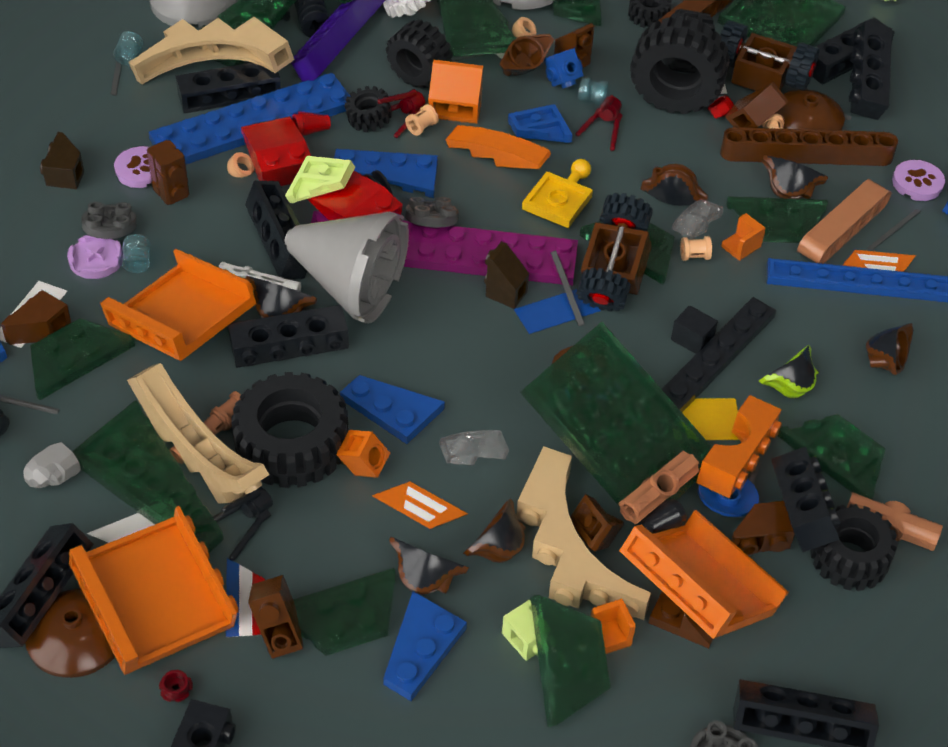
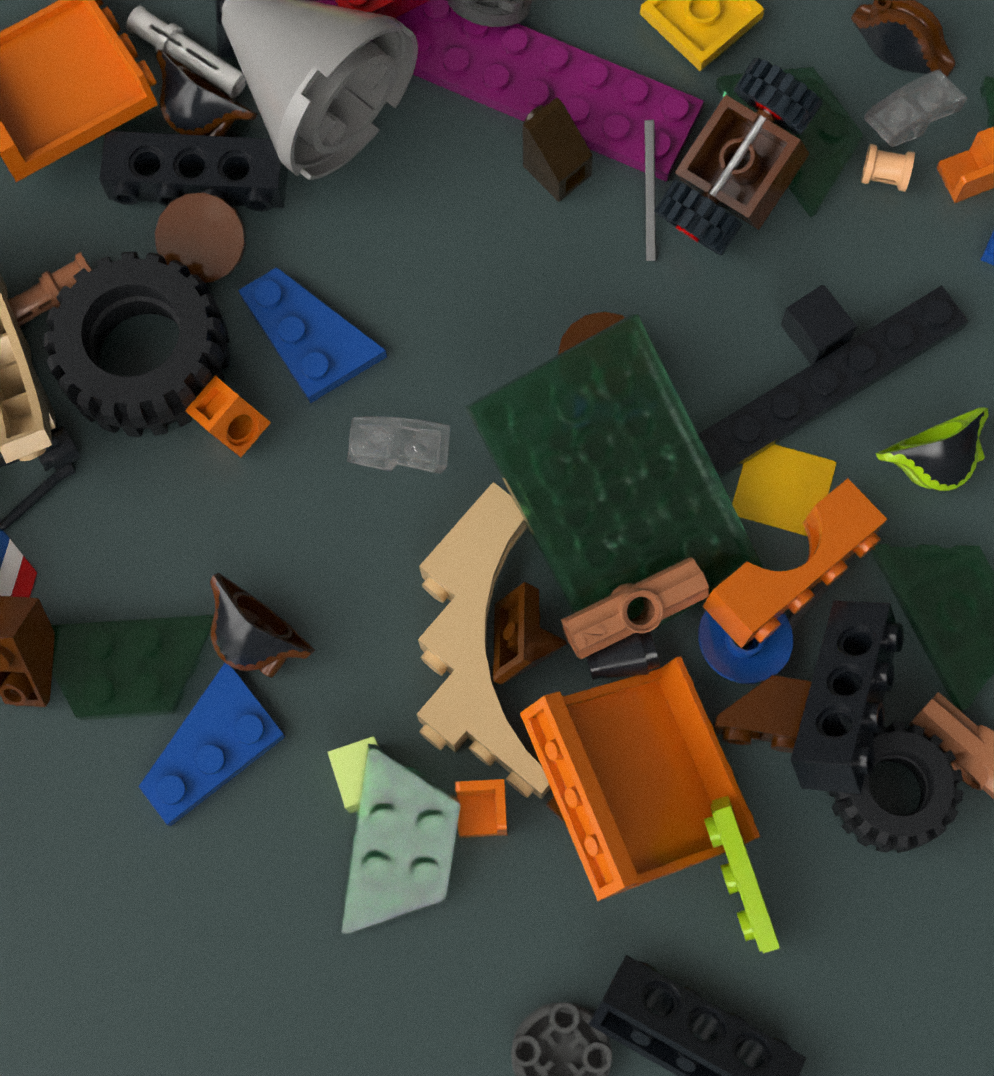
camera: 25 degrees right, 25 degrees up
(308, 358) = (202, 235): none -> reddish brown tile
(420, 505) = (292, 514): orange sticker -> none
(501, 538) = (380, 612): hat -> none
(551, 312) = (611, 224): blue sticker -> none
(789, 614) = (740, 875): none -> lime tile

